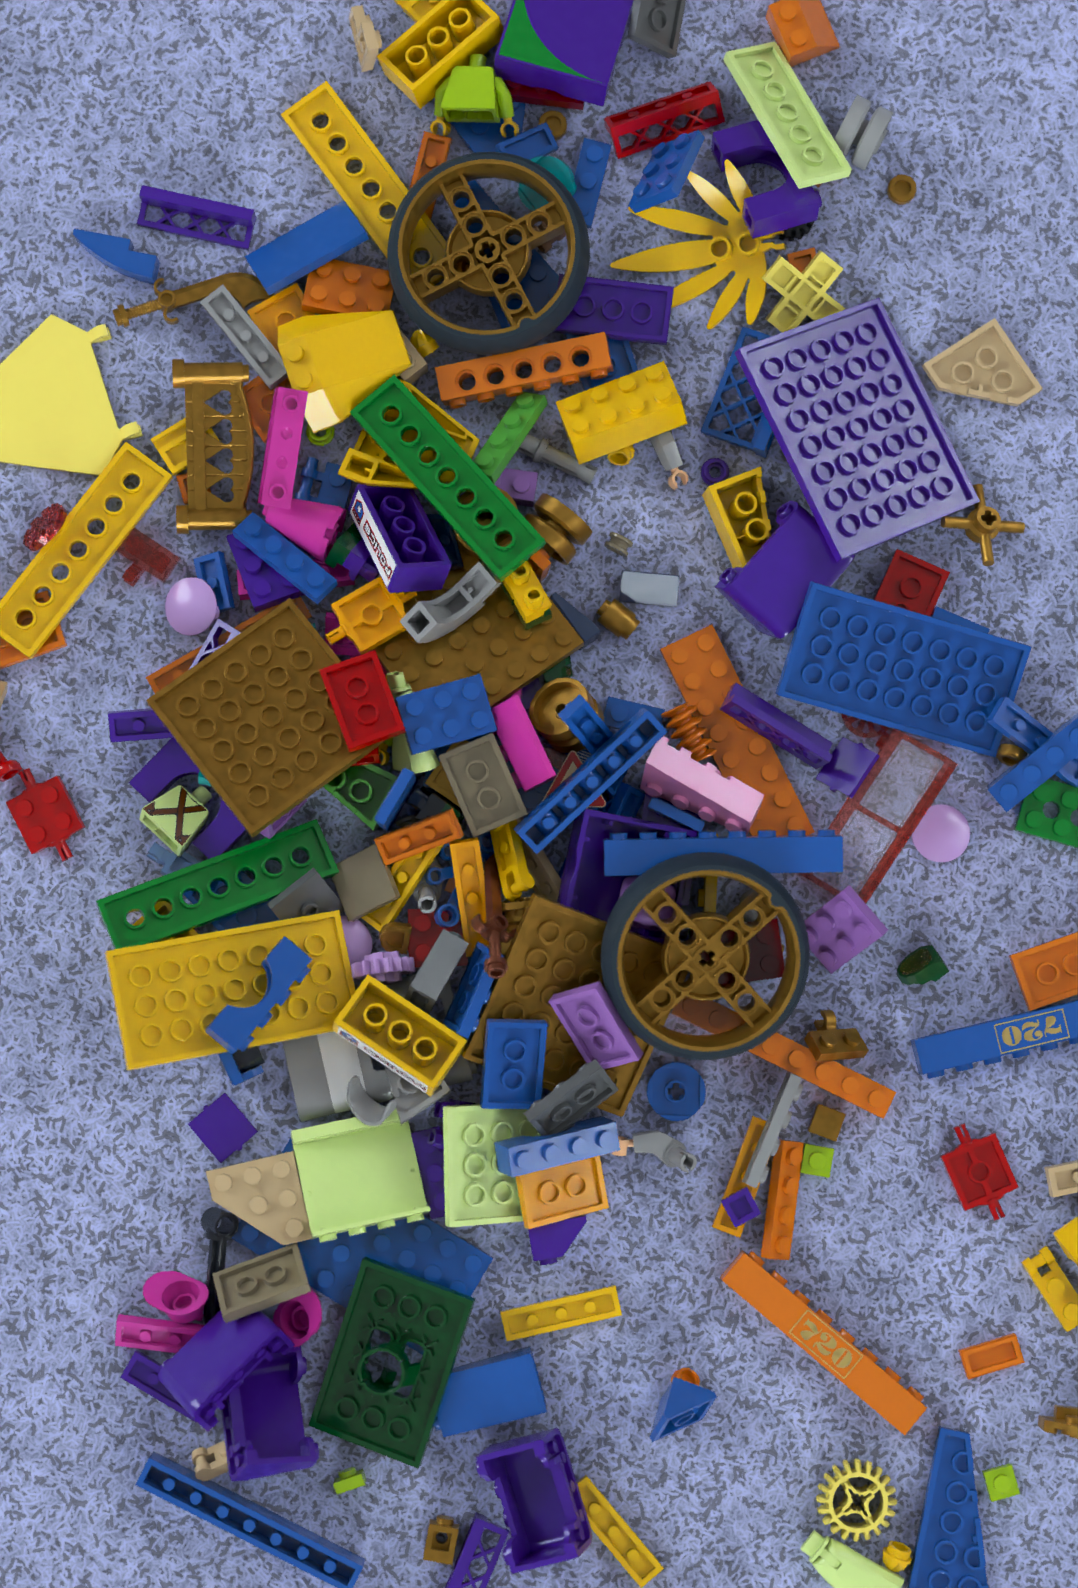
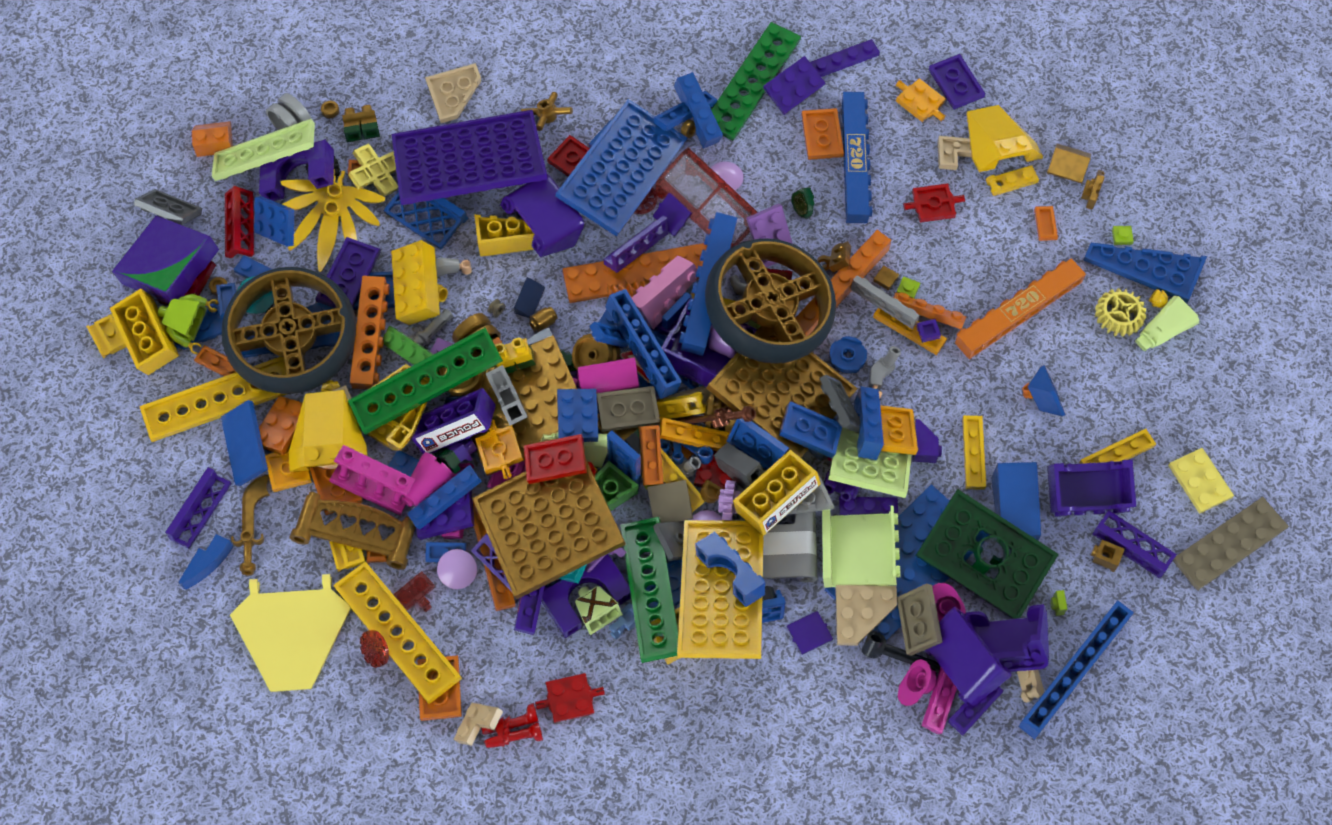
camera: 70 degrees left, 20 degrees down
(245, 336) = (289, 491): light grey plate -> none
(364, 1106) = (821, 529): light grey helmet -> none
(365, 37) = (123, 377): tan plate -> none
(596, 1026) = (798, 374): medium lavender plate -> none
(714, 463) = (468, 241): dark purple plate -> none
(882, 246) = (354, 121): none -> hips

